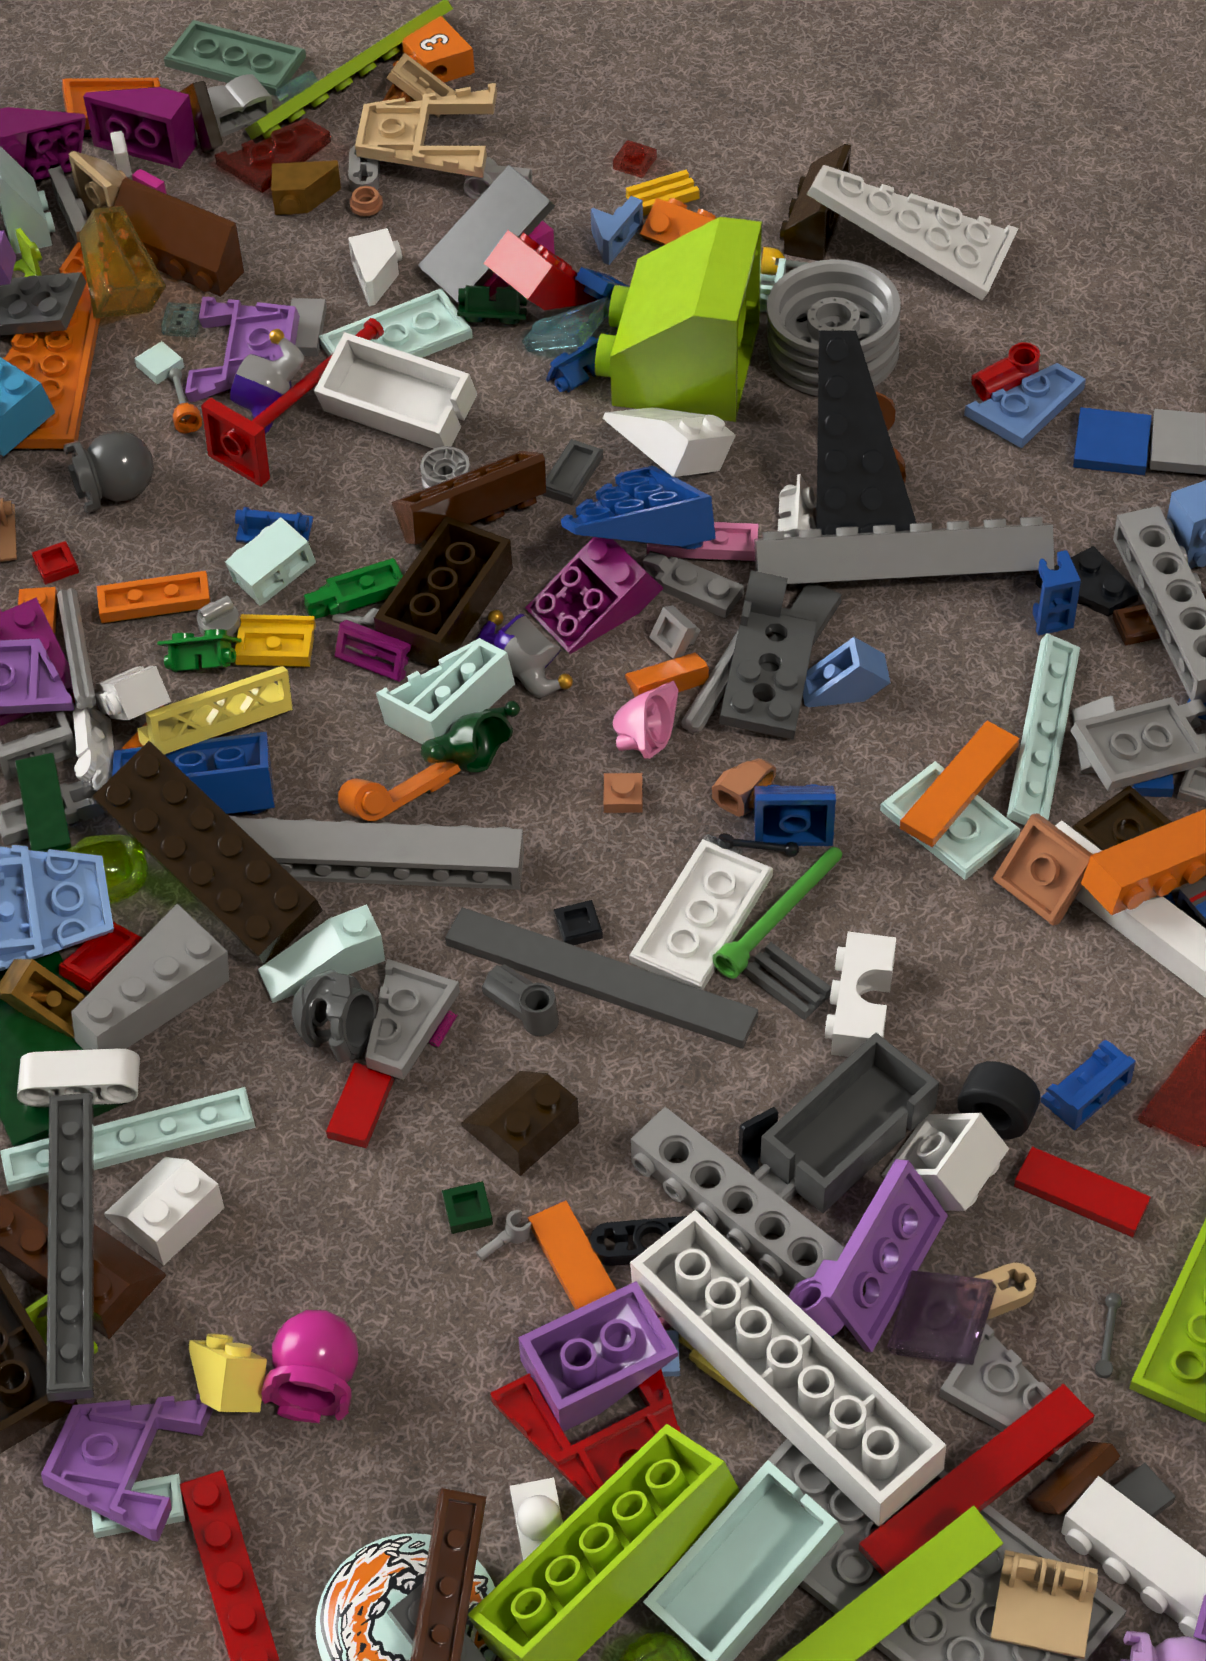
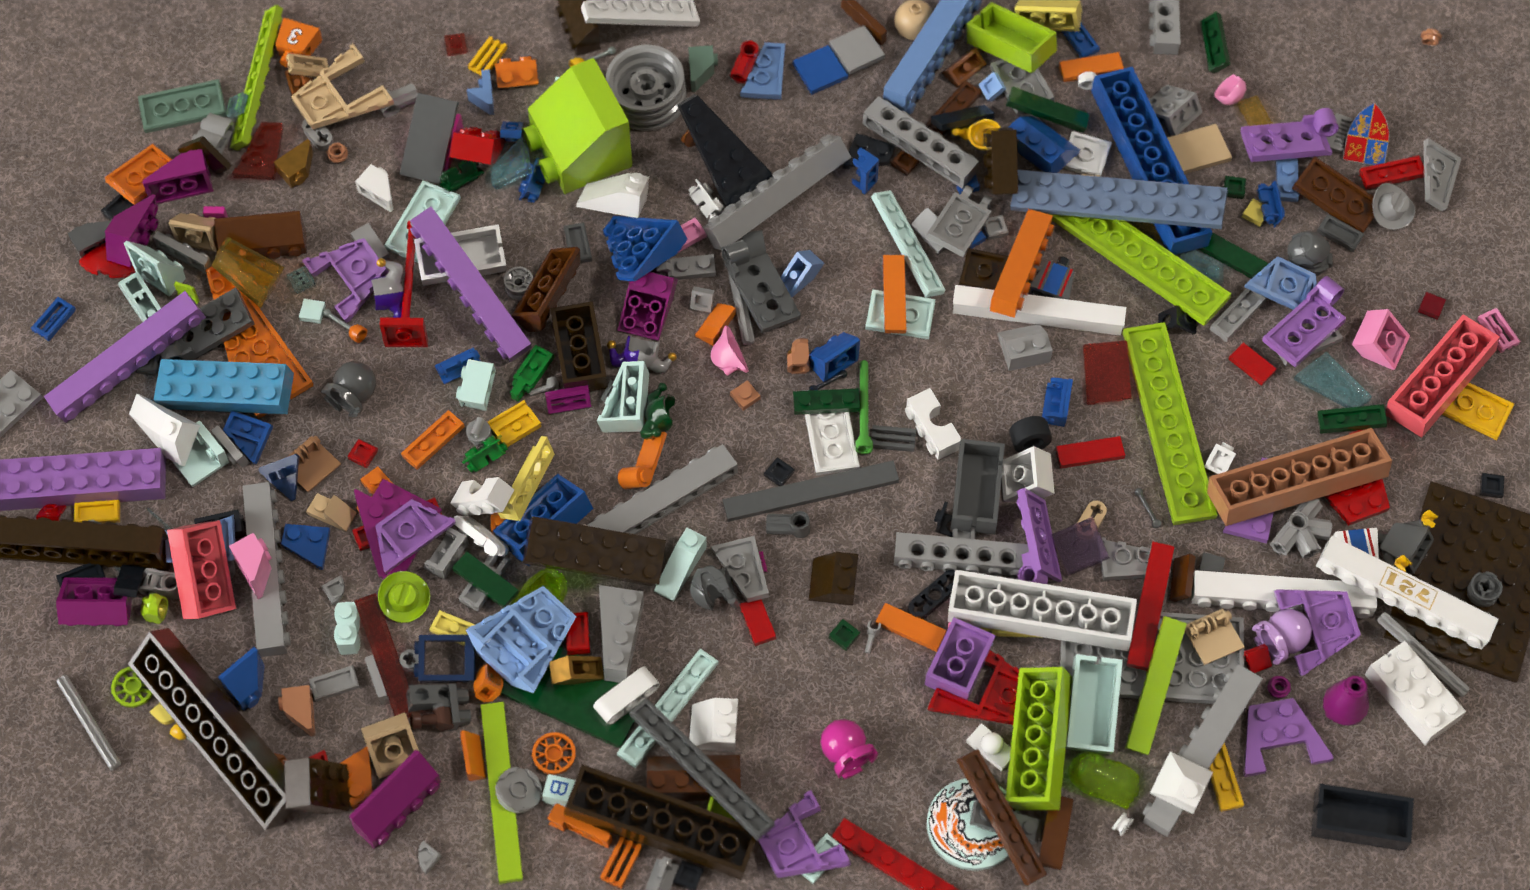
camera: 40 degrees left, 10 degrees up
(76, 649) = (424, 491): light grey axle -> none
(120, 152) = (178, 202): white tile -> none
(227, 1374) = (813, 777): light yellow slope -> none
(367, 429) = (470, 283): none -> medium lavender brick
(728, 866) = (826, 401): none -> dark green plate
(939, 346) = (701, 65): none -> sand green slope
(1044, 869) = (965, 312): nougat tile -> none
(1102, 977) = (1025, 347): none -> light grey slope

